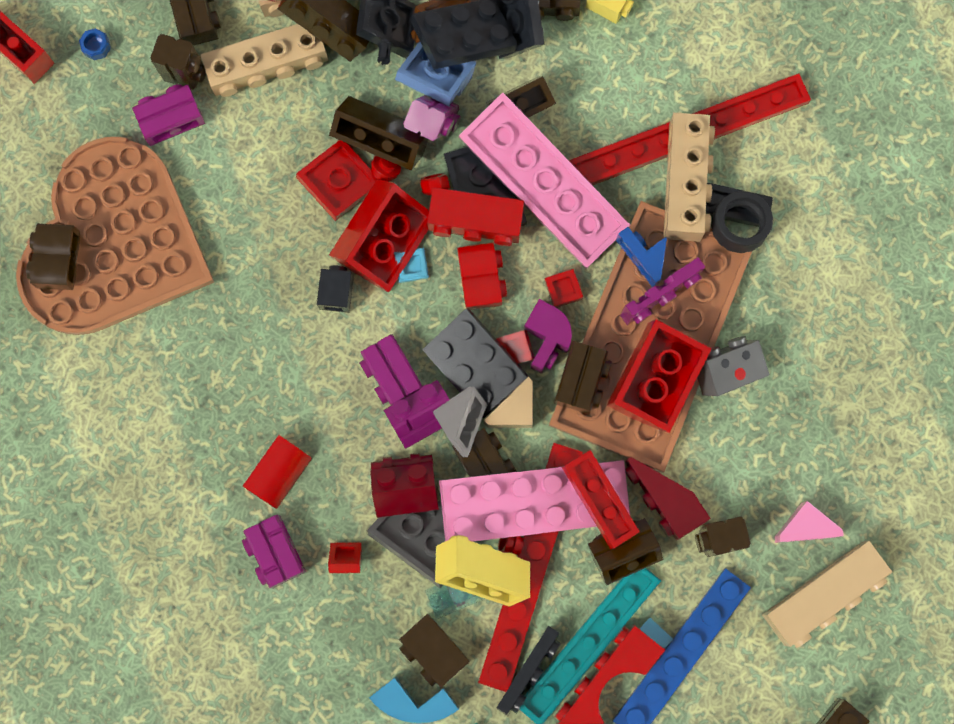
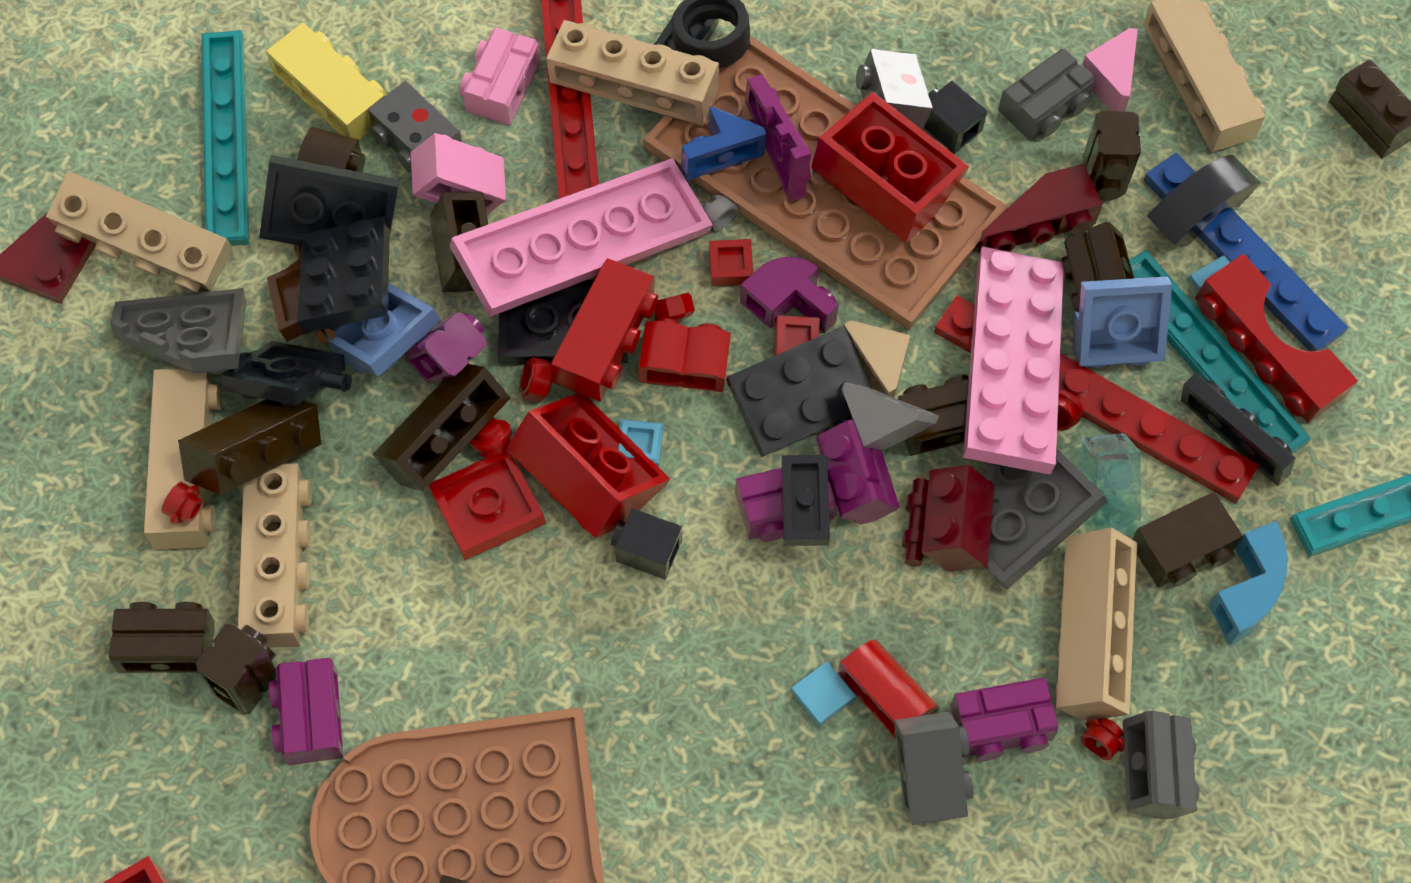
camera: 80 degrees left, 15 degrees down
(95, 44) = (156, 797): blue tile -> none
(221, 510) = (932, 767): none -> dark grey brick
(264, 430) = (823, 694): none -> medium azure tile
(264, 661) = (1160, 765): none -> dark grey brick
(279, 621) = (1106, 733): none -> red plate
(345, 557) = (1033, 624): red plate -> none
(352, 600) = (1096, 625): none -> tan brick
(381, 382) = (805, 500): none -> black plate
(482, 571) = (1100, 432): light yellow brick -> none
(515, 258) = (675, 307): none -> red tile
(569, 82) = (453, 166): none -> bright pink brick
(581, 378) = (864, 258): dark brown brick -> none
(581, 571) = (1122, 321): none -> medium blue plate
(600, 499) = (1033, 272): red plate -> none
(601, 270) = (720, 211): none -> light grey hinge
(602, 44) = (406, 121): none -> dark grey brick
(666, 88) = (500, 75): none -> bright pink brick
(709, 614) = (1202, 197): none -> black brick
(730, 414) = (954, 116): none -> black brick
(770, 481) = (1047, 95): none -> dark grey brick

